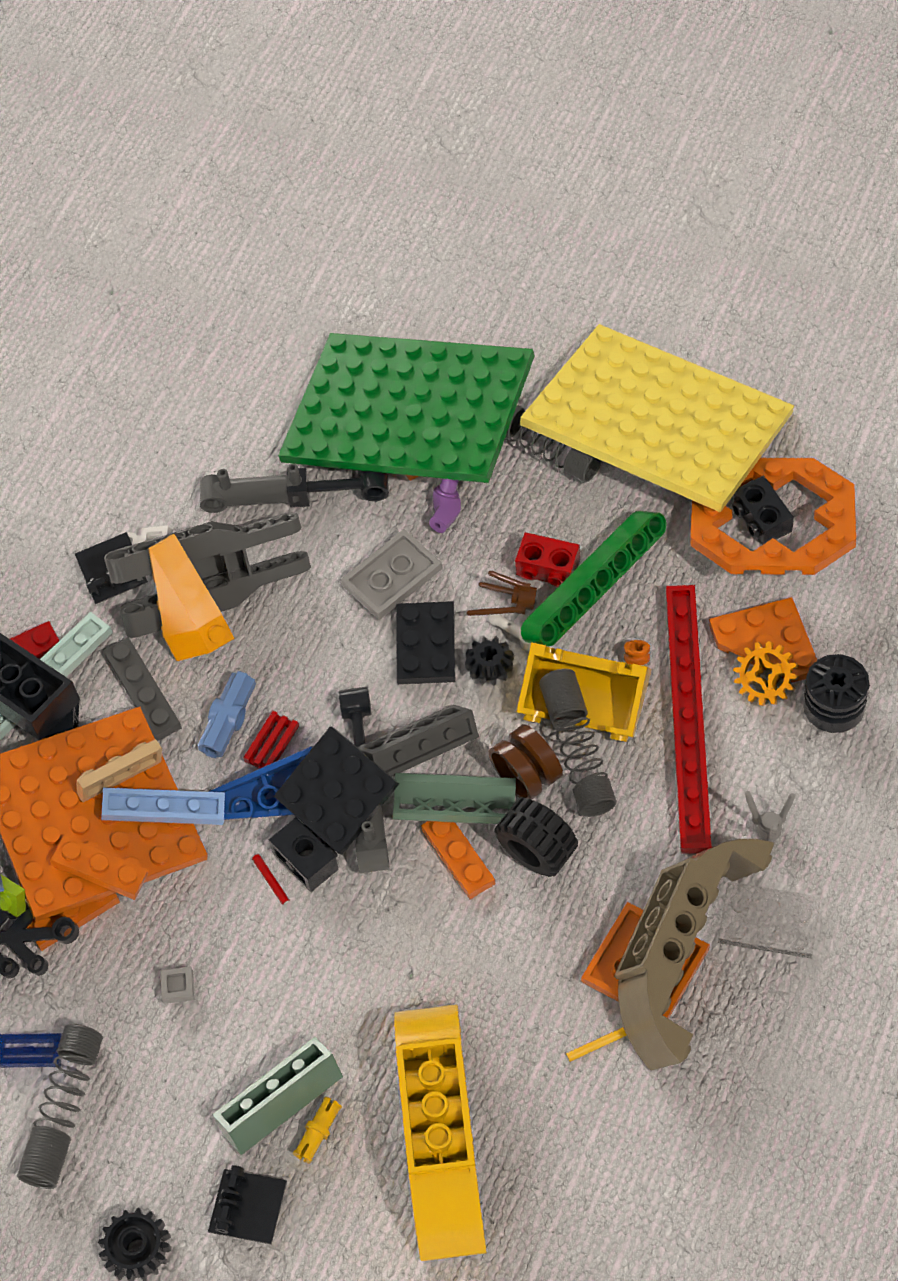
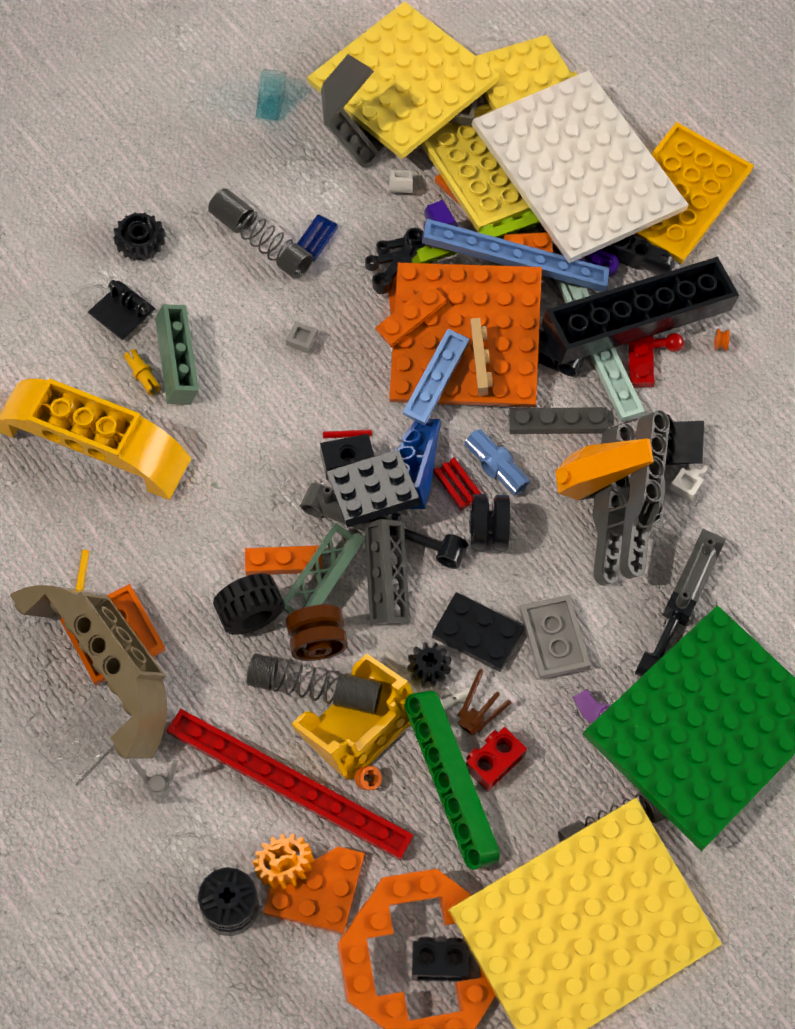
camera: 110 degrees right, 5 degrees up
(306, 674) = (486, 522): none -> black wheel

